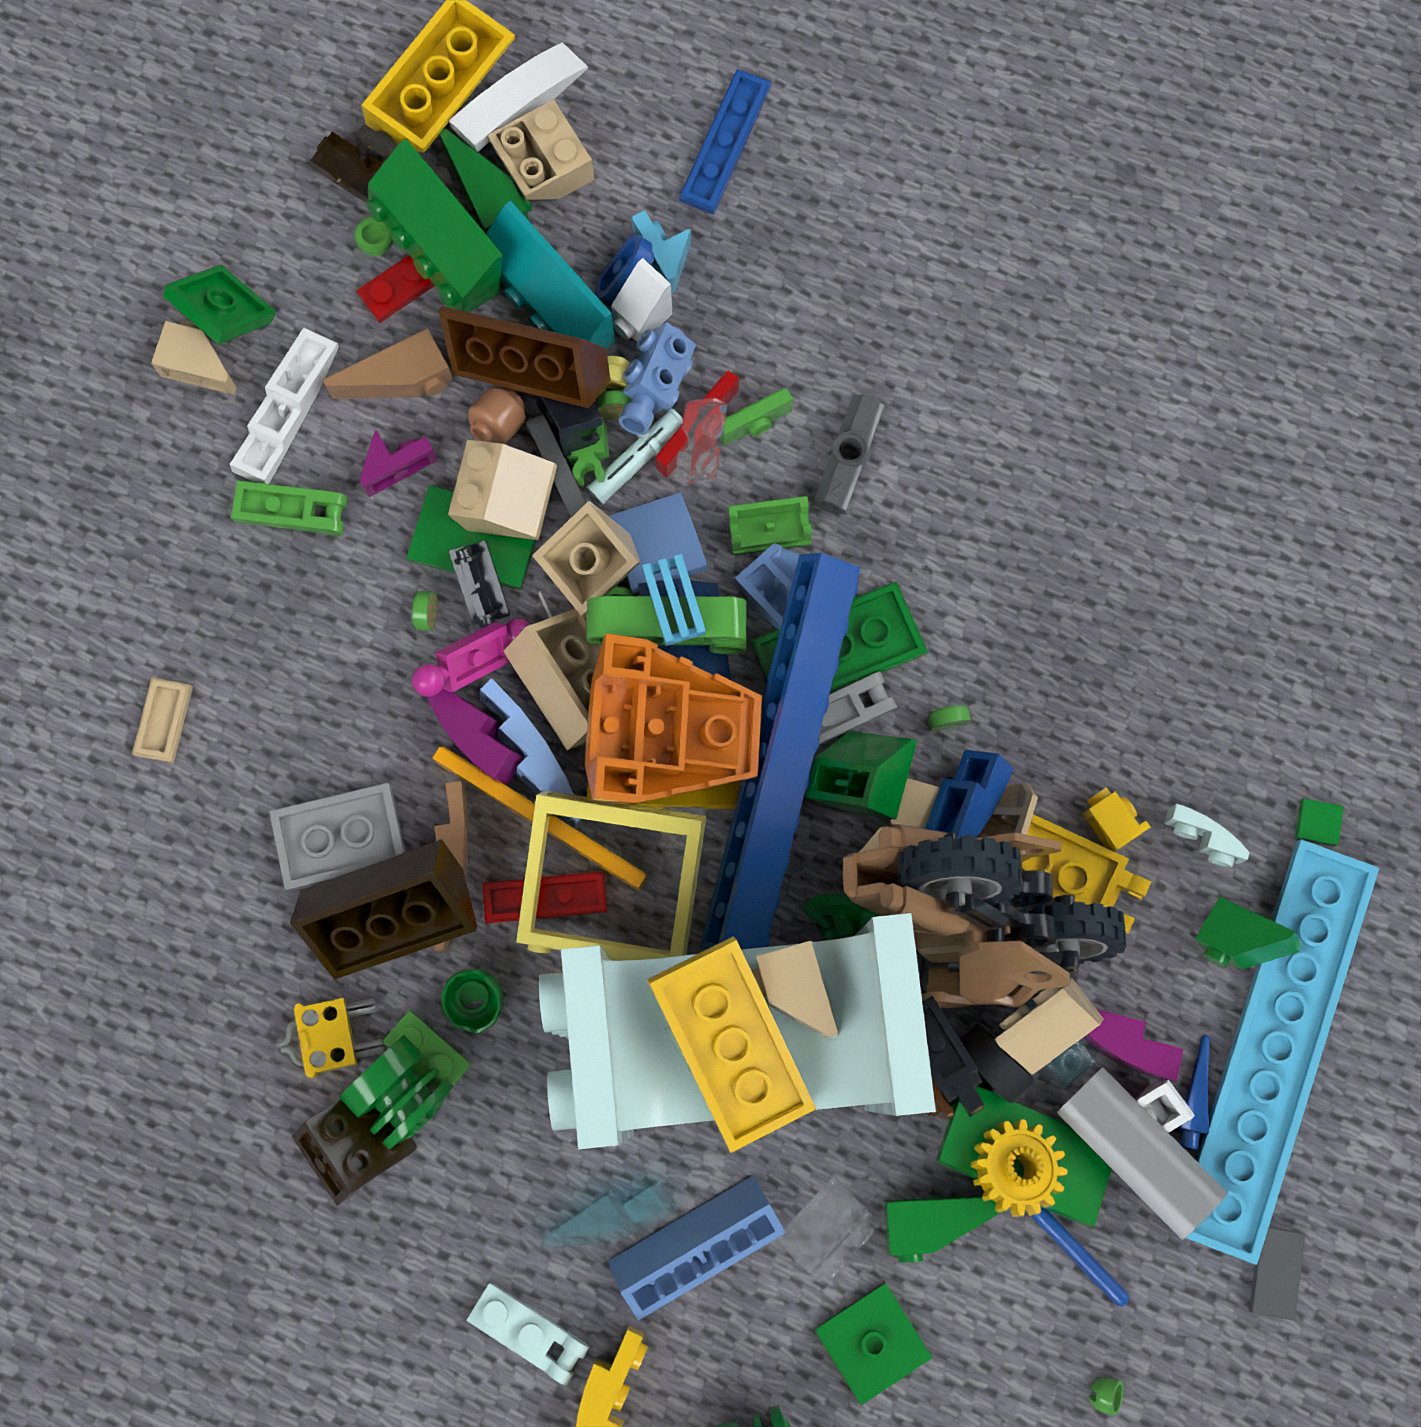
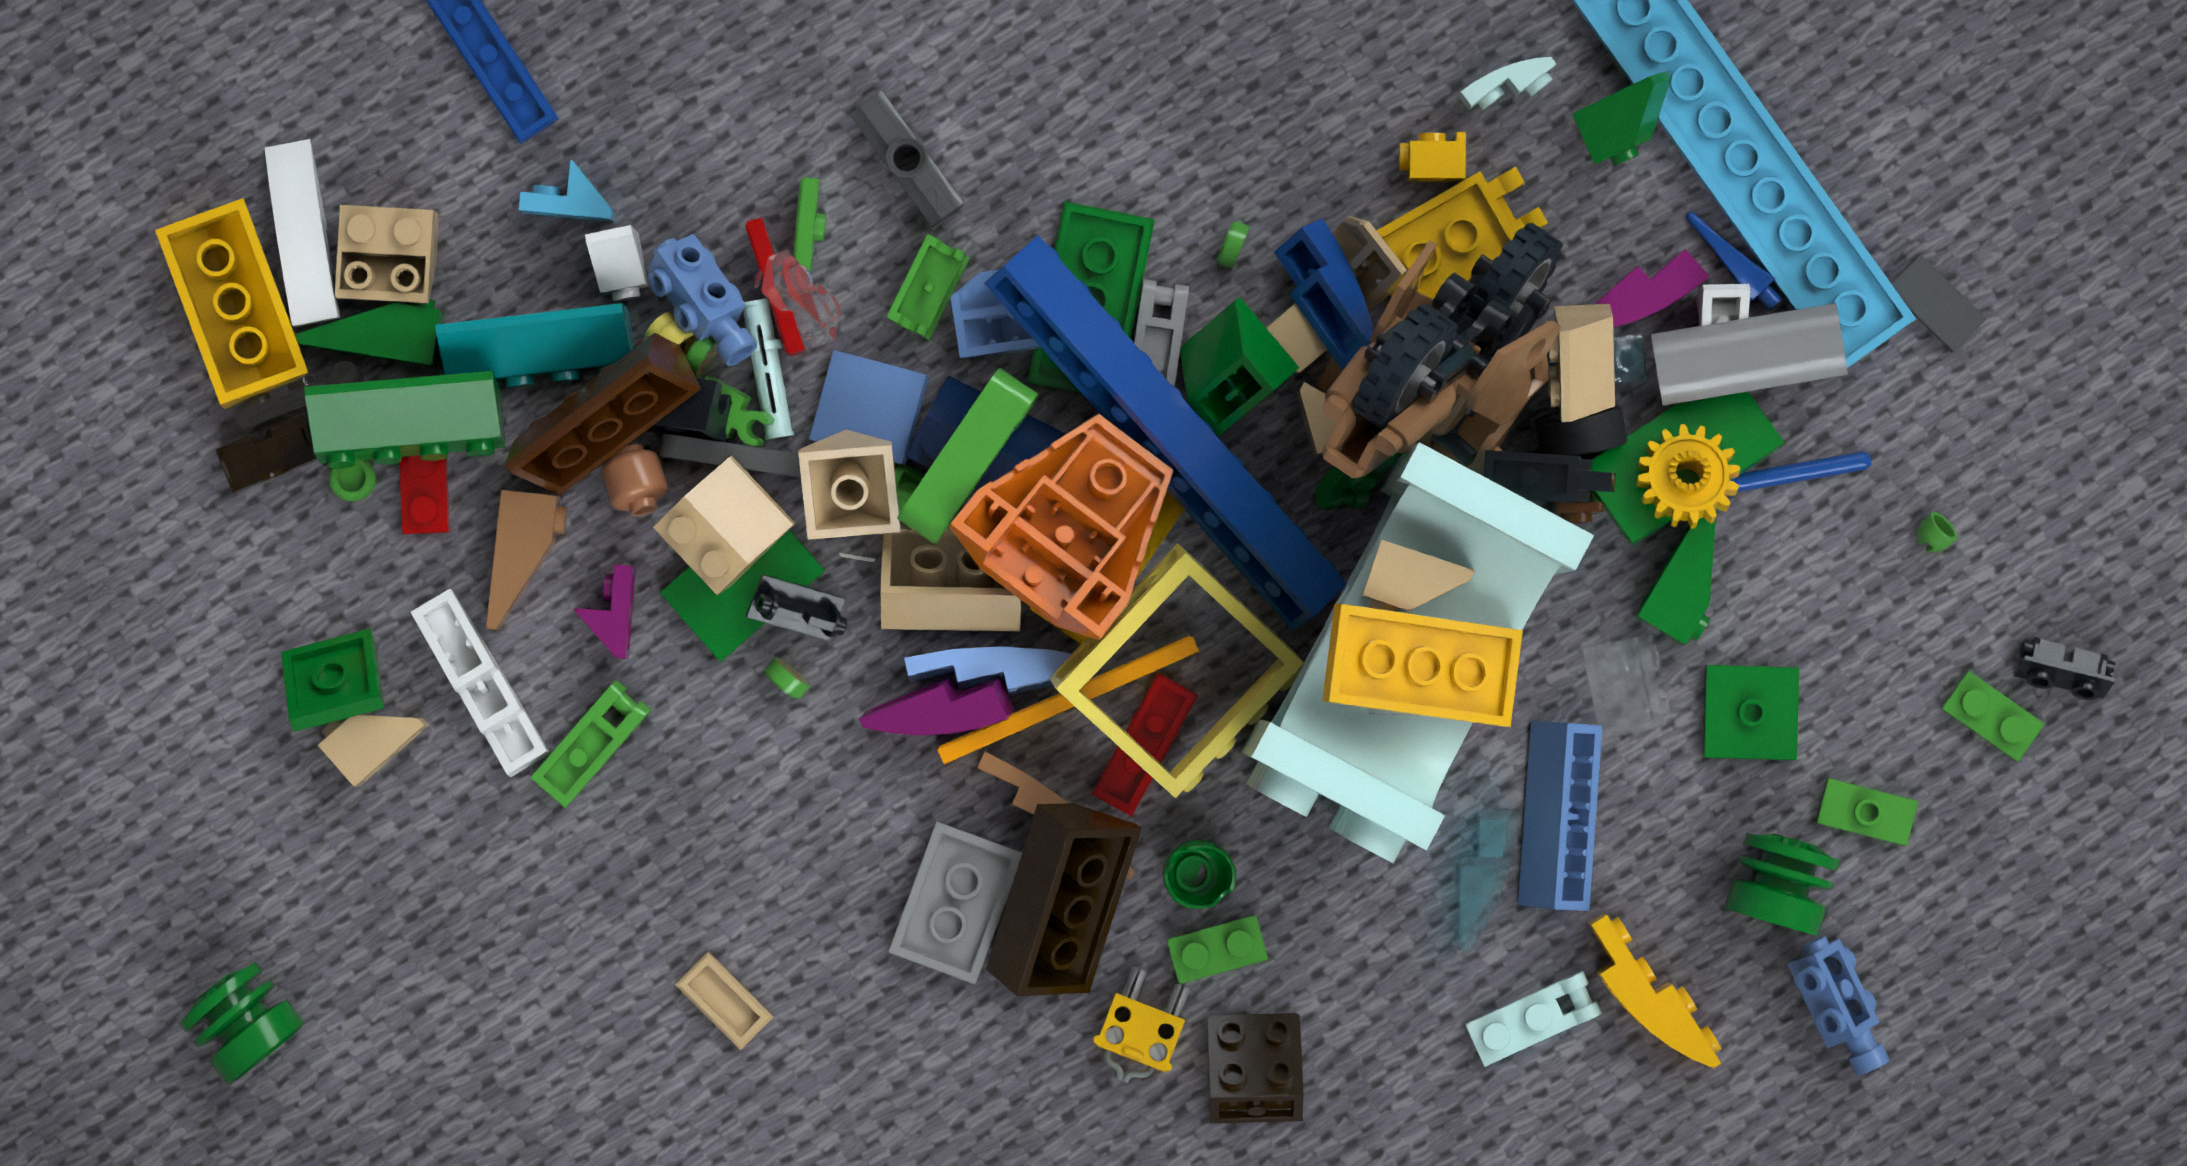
camera: 60 degrees left, 10 degrees up
(396, 1092) = (1241, 996): green wheel -> none
(467, 659) = (870, 663): dark pink plate -> none
(620, 267) = (567, 253): blue plate -> none
(664, 567) = (920, 426): medium azure tile -> none

